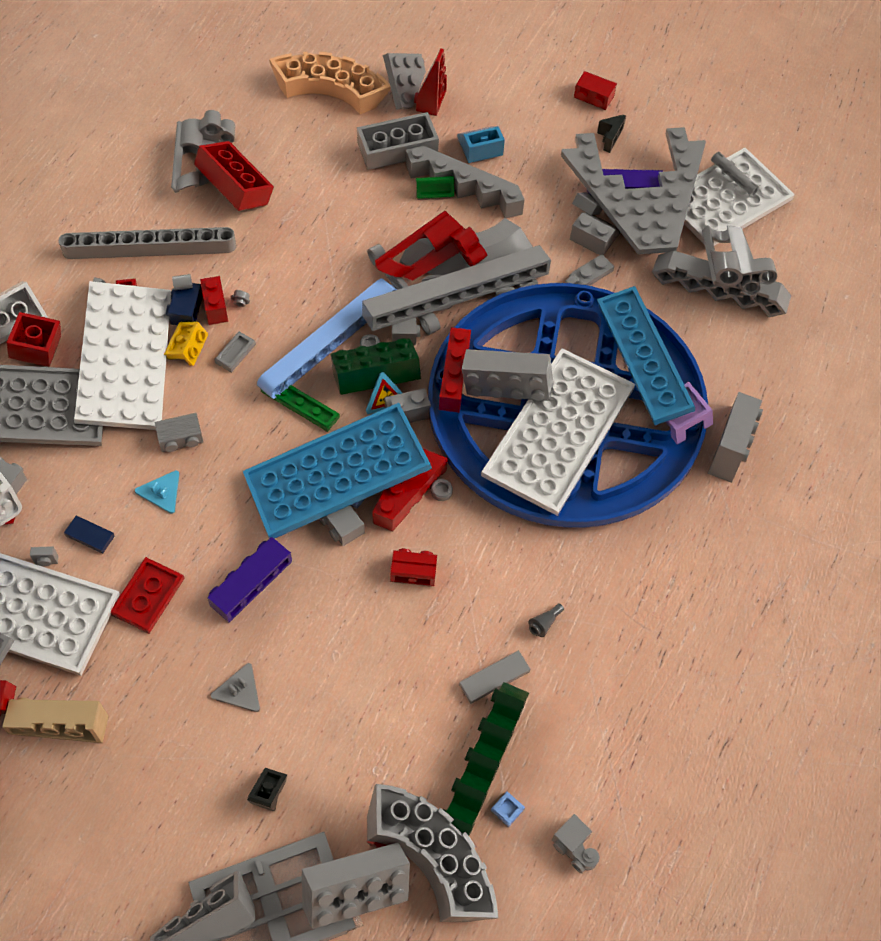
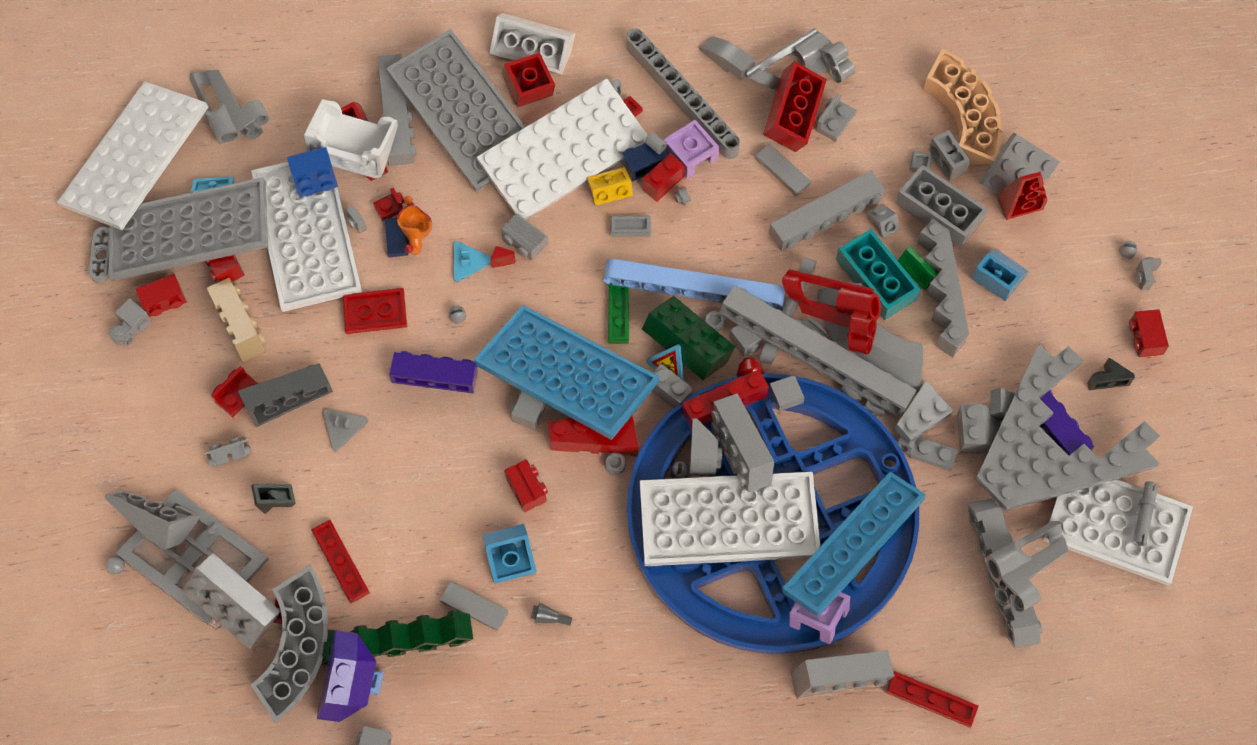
camera: 60 degrees right, 5 degrees up
(53, 520) = (389, 205): none -> red bracket
(94, 509) = (414, 225): none -> orange piece
(131, 765) = (227, 394): none -> red bracket
(144, 193) = (728, 56): none -> light grey slope
(171, 719) = (284, 393): none -> dark grey wedge
(182, 816) = (236, 448): none -> light grey hinge
(184, 459) = (502, 257): none -> red slope
(205, 261) = (691, 147): none -> lavender panel
(210, 531) = (457, 317): none -> light grey hinge
(263, 160) = (835, 118): none -> light grey bracket
(276, 220) = (783, 169): none -> light grey tile
(338, 214) = (826, 211): none -> light grey brick
(346, 134) = (920, 159): none -> light grey tile
(359, 110) = (949, 155): none -> light grey brick
(372, 768) = (340, 561): none -> red tile
(376, 182) = (884, 219): none -> light grey bracket
(411, 209) = (874, 266): none -> teal brick
(433, 343) = (748, 366): none -> red cone
(466, 617) = (509, 553): none -> dark azure slope
(480, 326) = (786, 393): none -> light grey piece
(483, 446) = (674, 470): none -> light grey hinge
(489, 407) = (704, 451): none -> light grey slope
(498, 823) = (346, 678): none -> dark purple wedge
(519, 63) = (1130, 251): none -> light grey hinge
(547, 64) = (1144, 272): none -> light grey bracket
(561, 256) = (923, 413): none -> light grey wing
(791, 391) = (932, 699): none -> red tile

